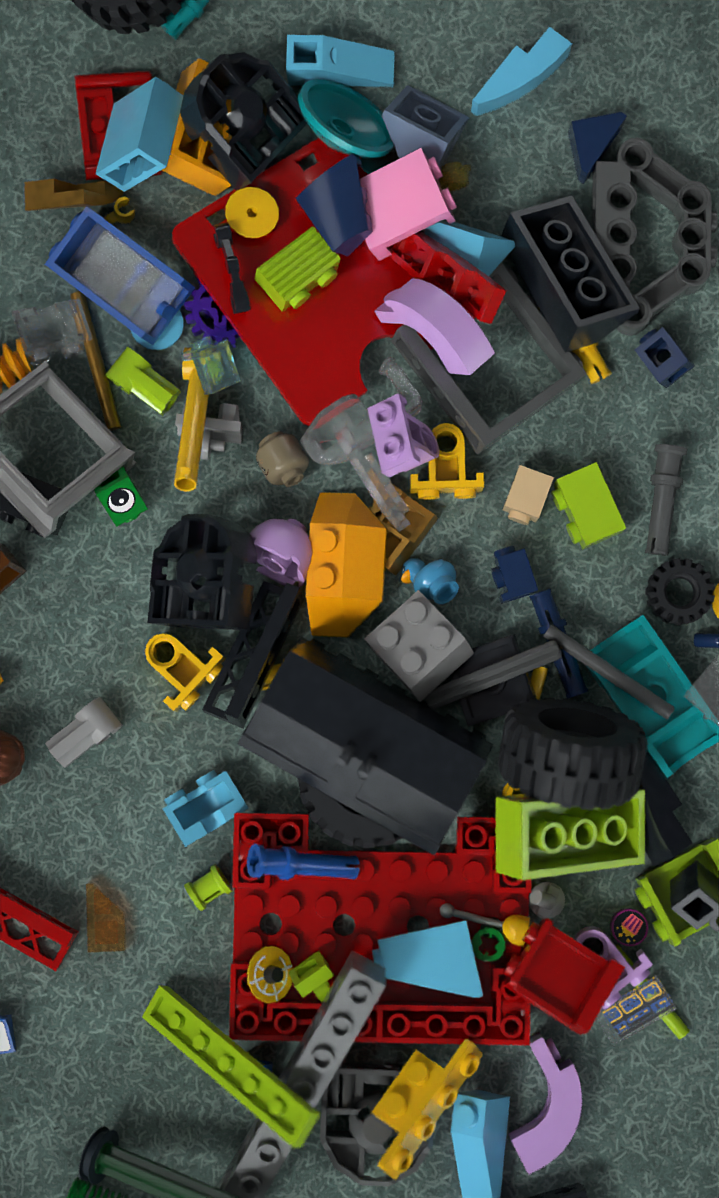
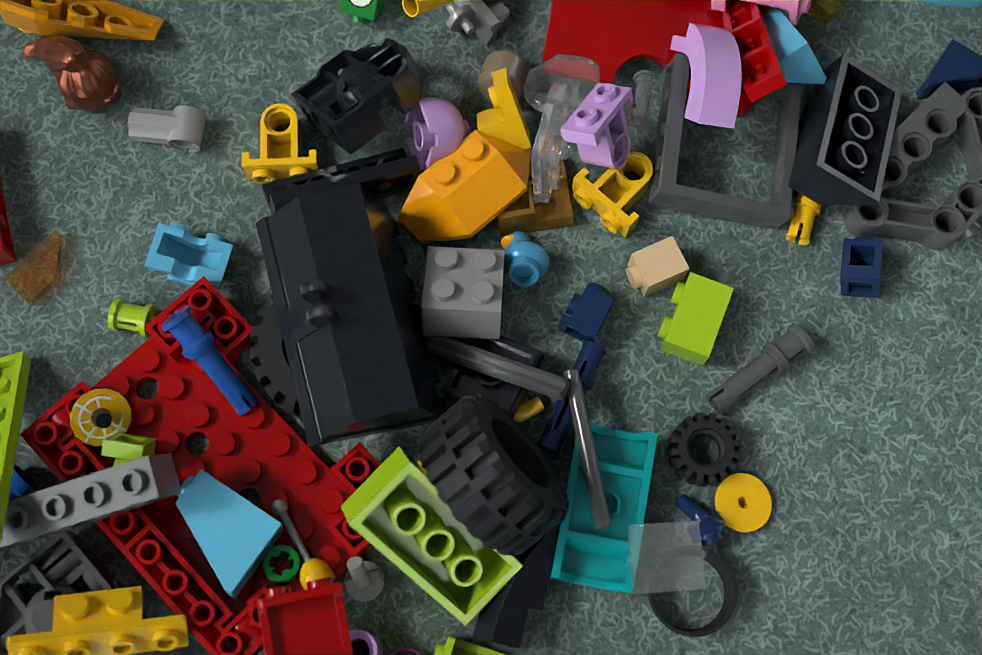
camera: 40 degrees right, 10 degrees down
(317, 491) = (506, 118): none -> yellow slope

